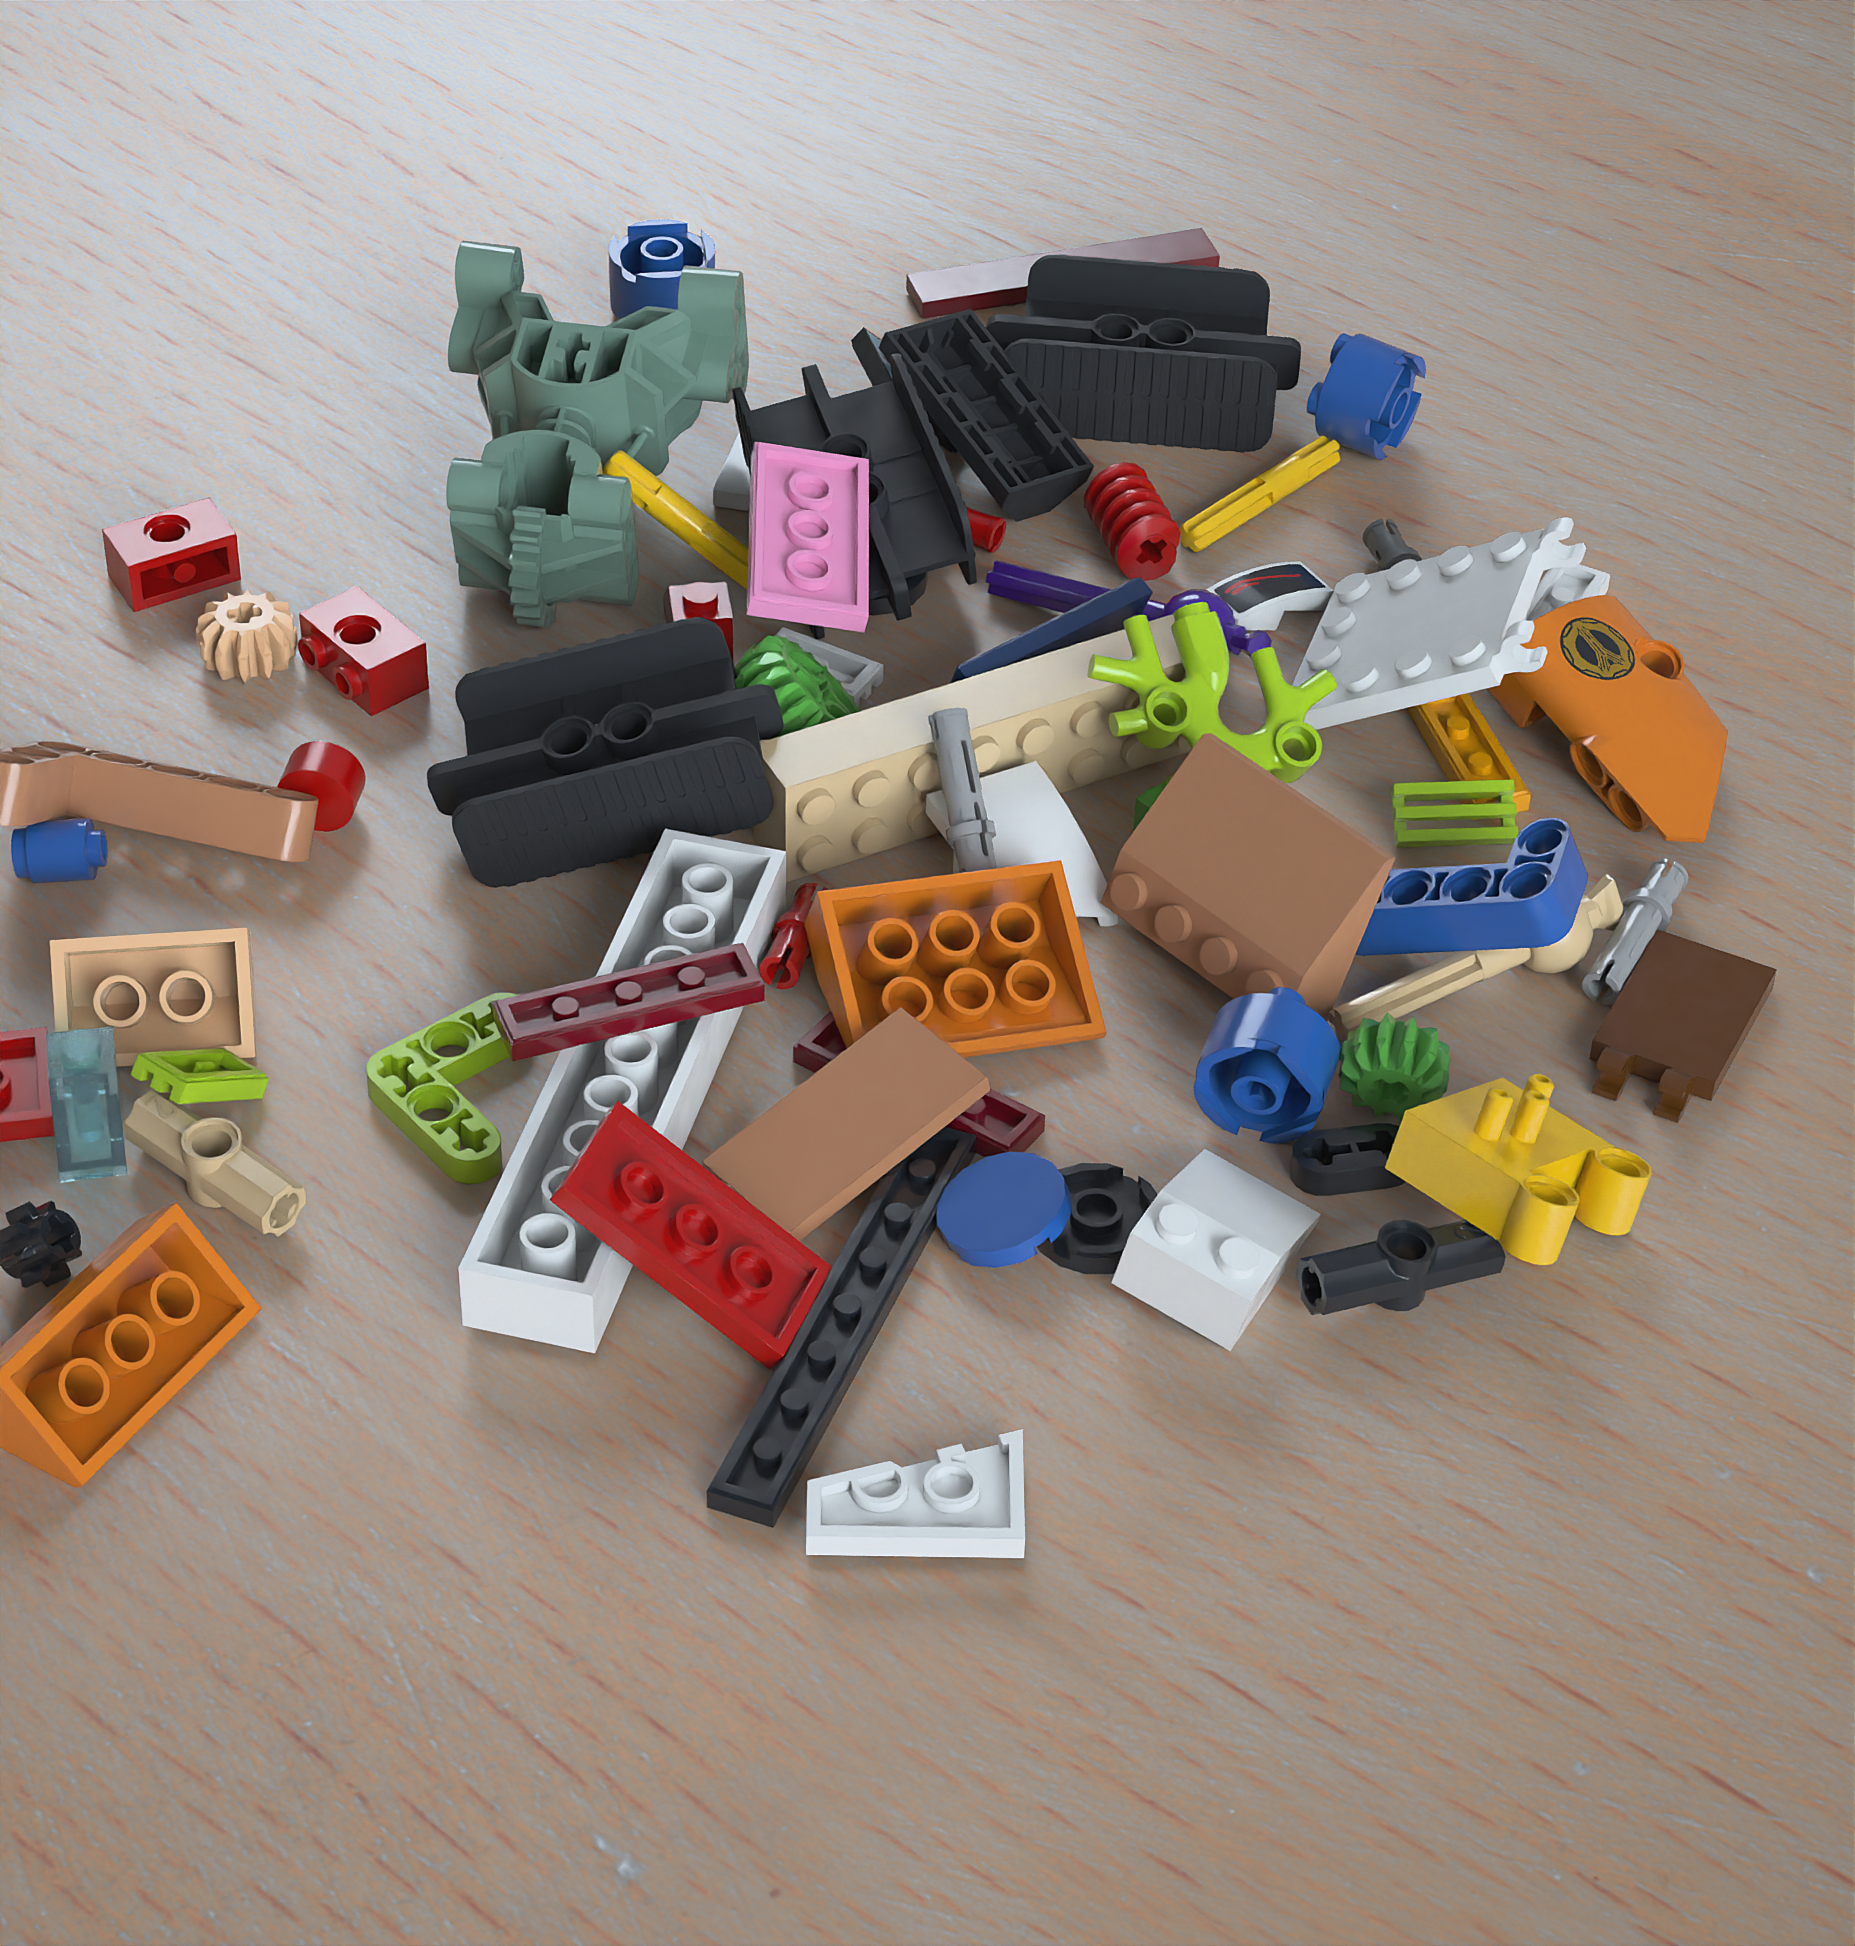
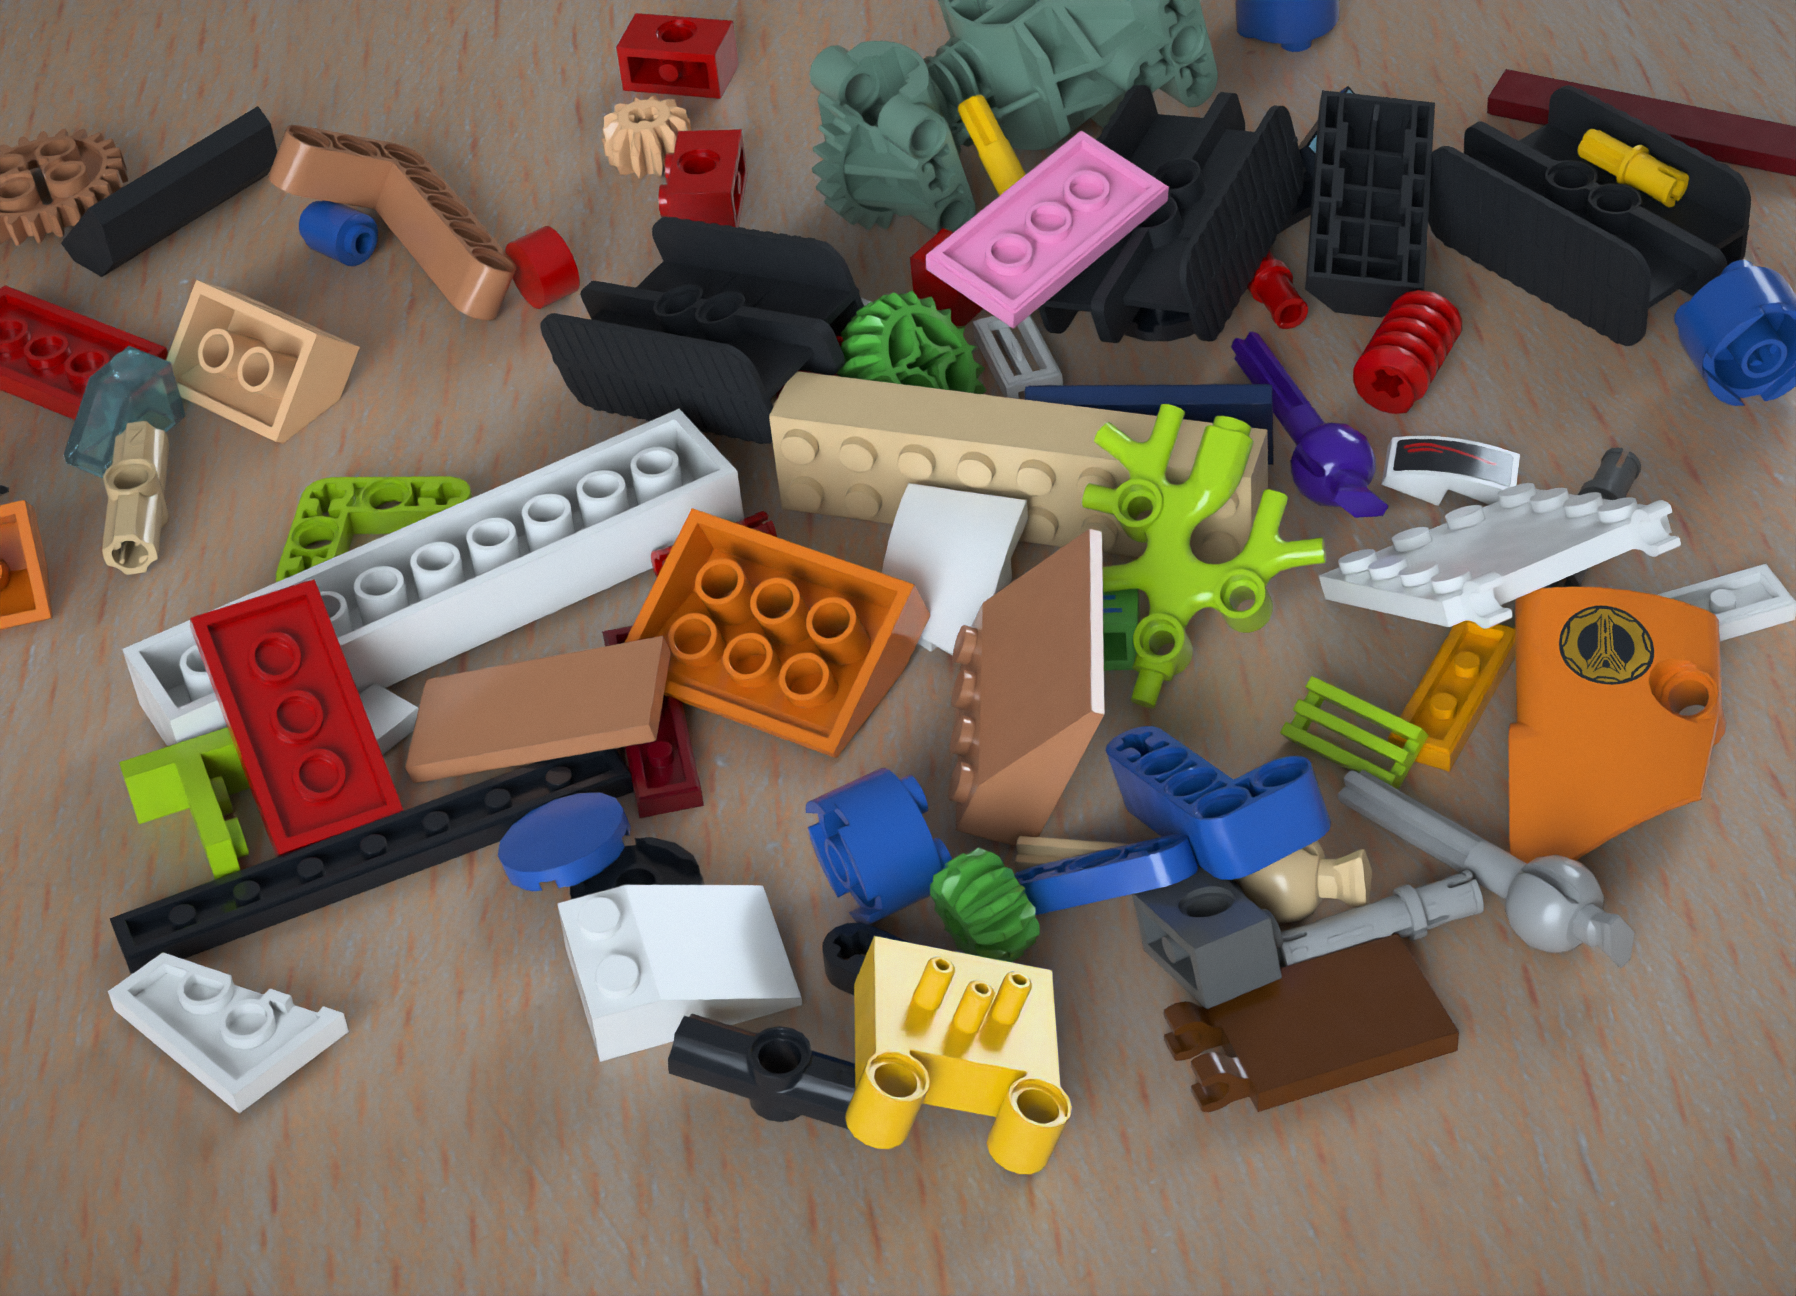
camera: 50 degrees right, 0 degrees up
(200, 1075) = (197, 430): lime tile -> none
(628, 1001) = (472, 521): dark red tile -> none
(636, 1348) = (196, 777): none -> lime bracket
(969, 827) = (932, 432): light grey pin -> none
(1152, 301) = (1634, 167): none -> yellow axle
(1259, 494) = (1569, 381): yellow axle -> none
(1459, 981) = (1108, 873): none -> blue beam
(1560, 996) = (1209, 937): none -> dark grey brick
(1734, 849) = (1548, 901): none -> light grey piece

